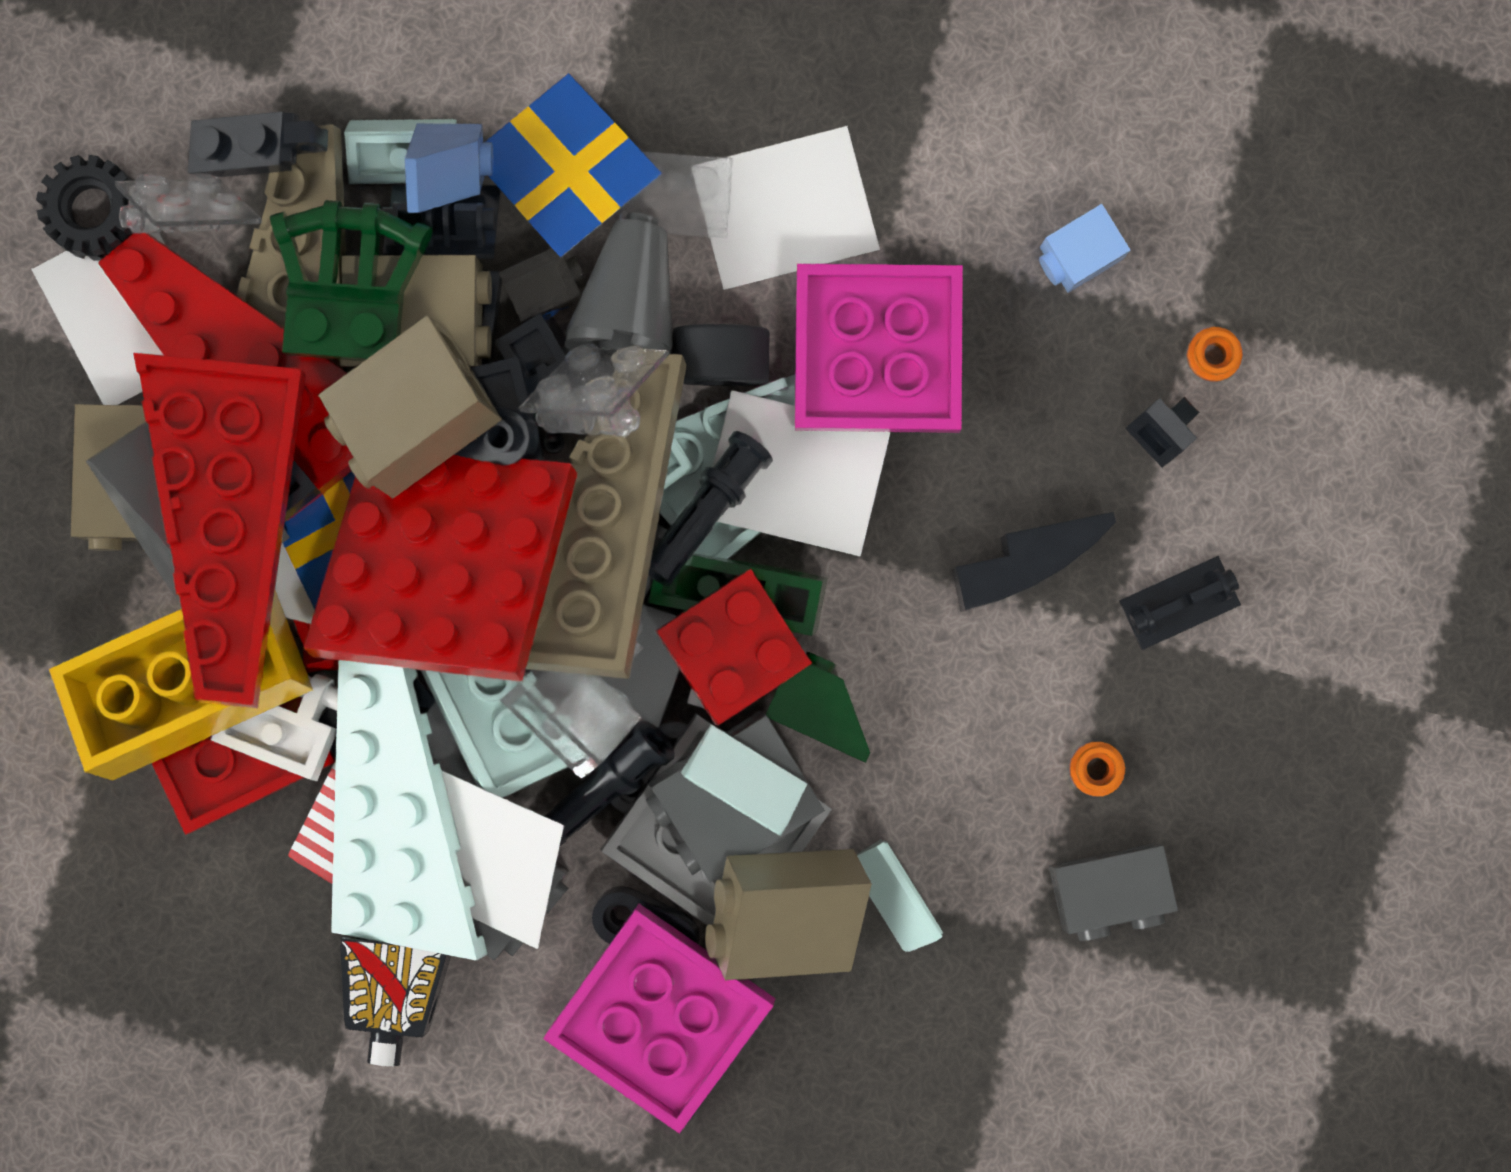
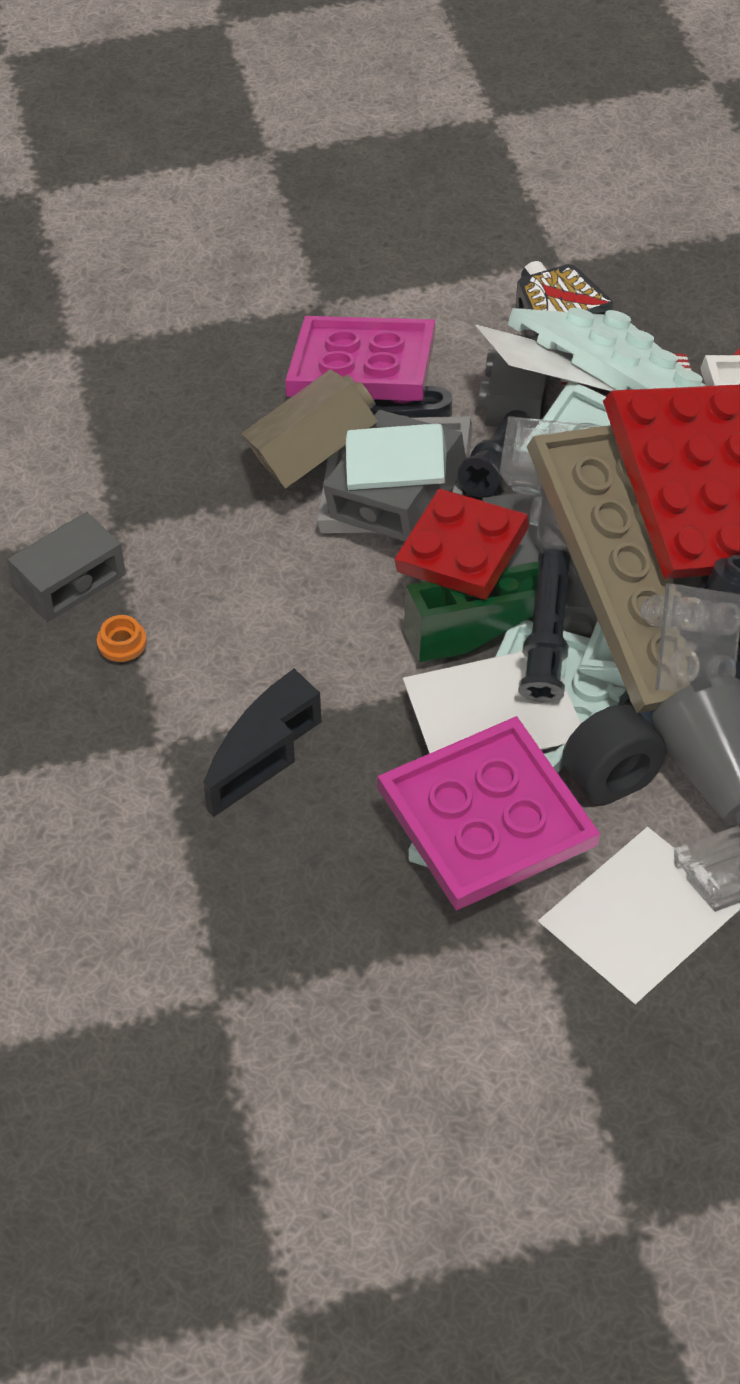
camera: 155 degrees right, 35 degrees down
(820, 708) = (362, 574): dark green slope -> none
(898, 898) = (231, 503): light aqua slope -> none
(1082, 249) = (355, 991): light blue brick -> none
(1164, 429) = (198, 887): black tile -> none
(1181, 602) = (115, 775): black hinge -> none
(1226, 342) = (185, 960): orange plate -> none

